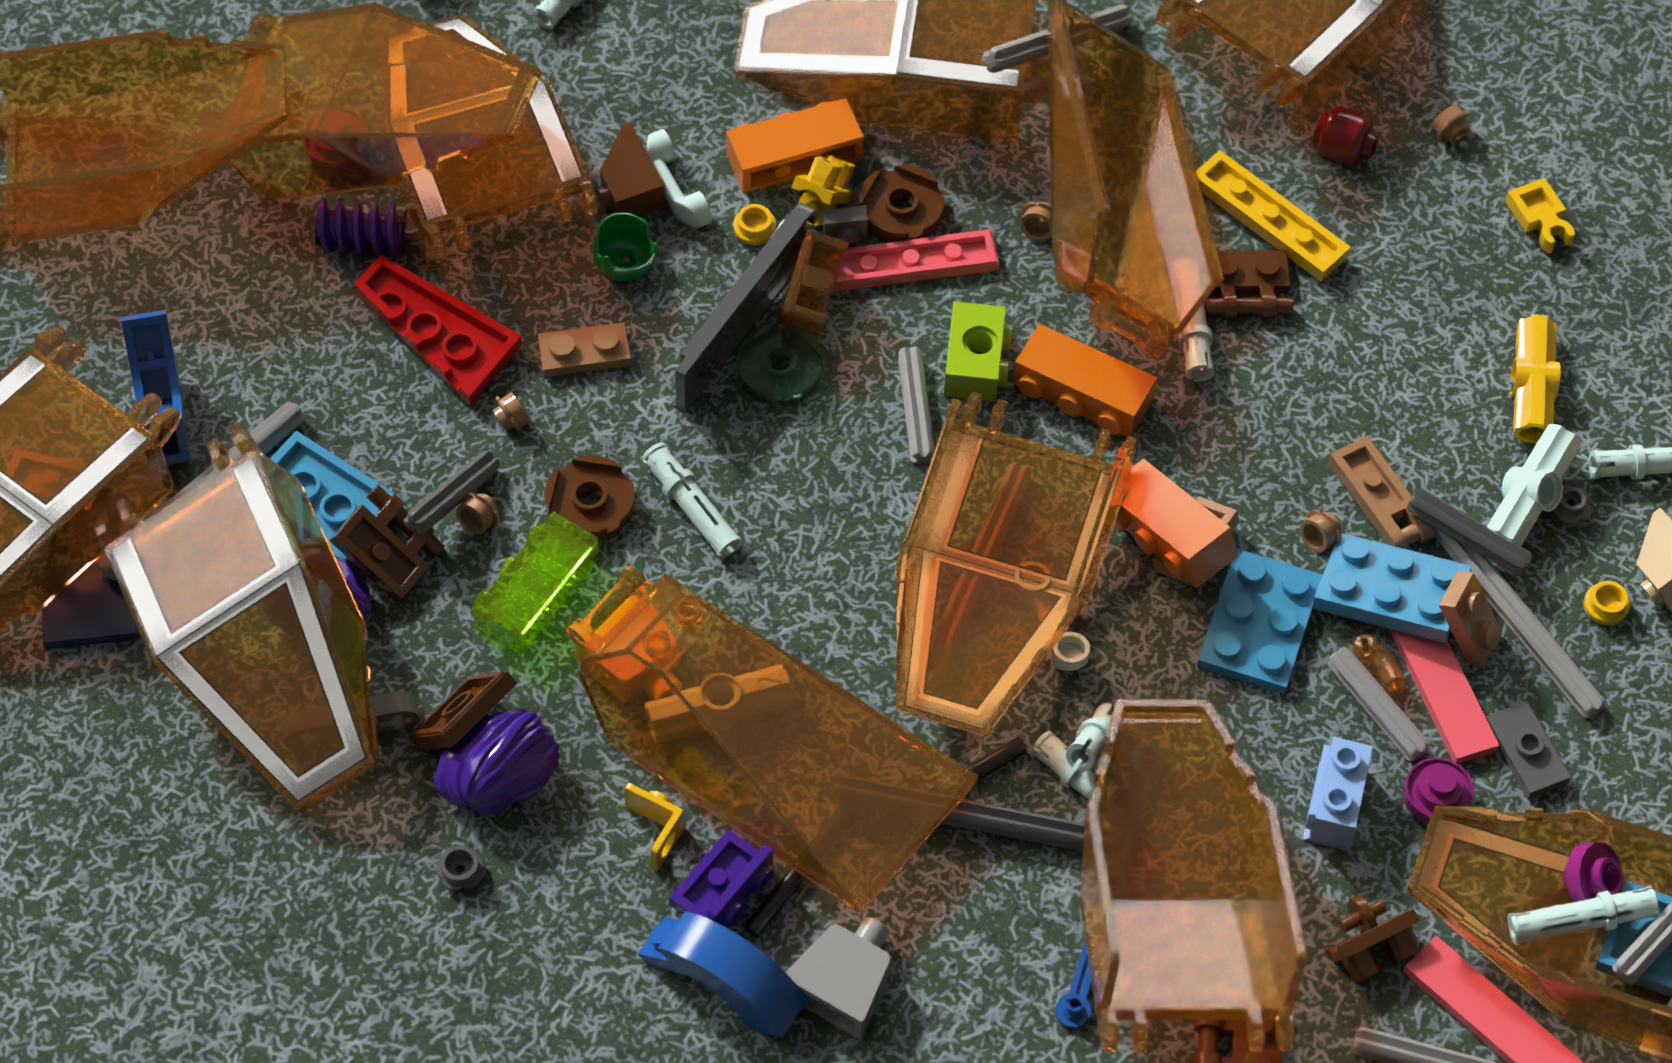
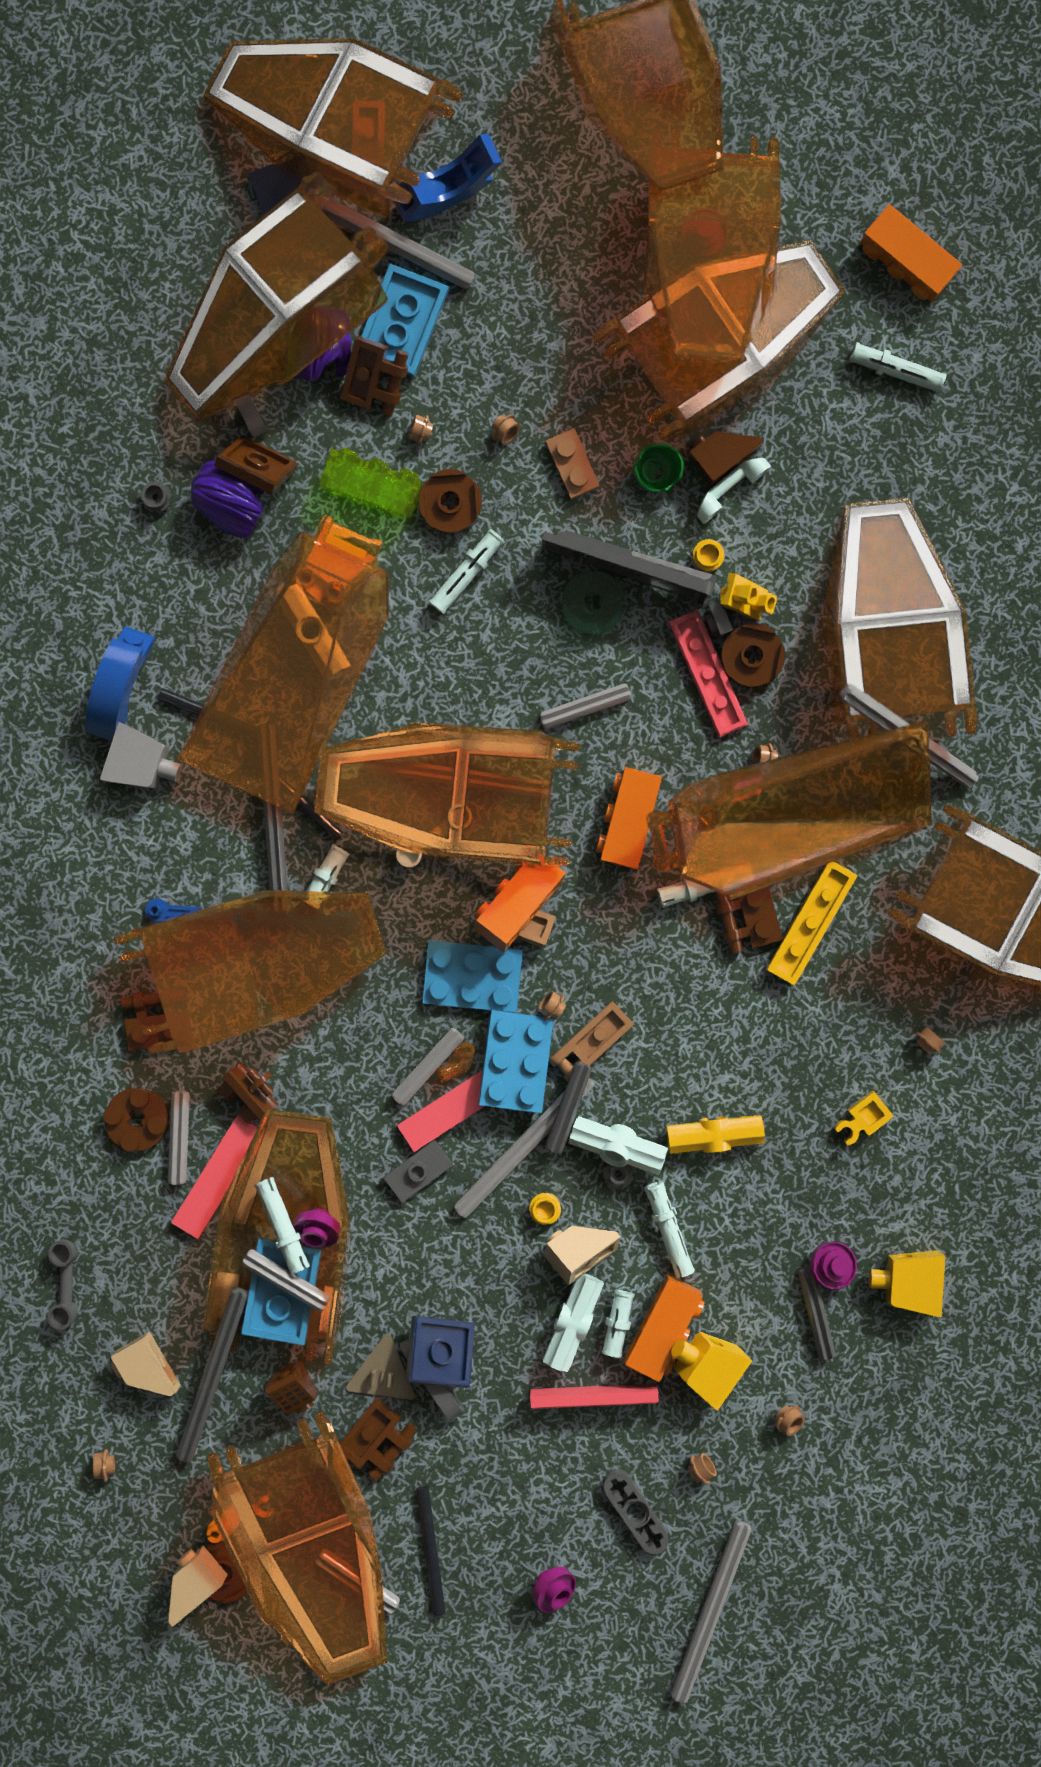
camera: 80 degrees right, 30 degrees up
(360, 228) = (625, 274): dark purple piece -> none
(445, 332) = (557, 367): red wing -> none
(451, 493) = (423, 407): dark grey axle -> none
(661, 810) = (225, 614): yellow bracket -> none
(725, 880) = (185, 667): dark purple bracket -> none
(788, 144) = (783, 564): orange brick -> none
(812, 281) = (654, 608): clear orange window -> none
(977, 330) = (651, 726): lime brick -> none
(1090, 739) = (343, 882): light aqua pin -> none
(1337, 793) = (346, 1051): light blue window -> none
(1345, 136) = (895, 965): dark red head -> none
(1436, 784) = (368, 1117): magenta plate -> none
(1470, 618) = (496, 1119): medium nougat plate -> none

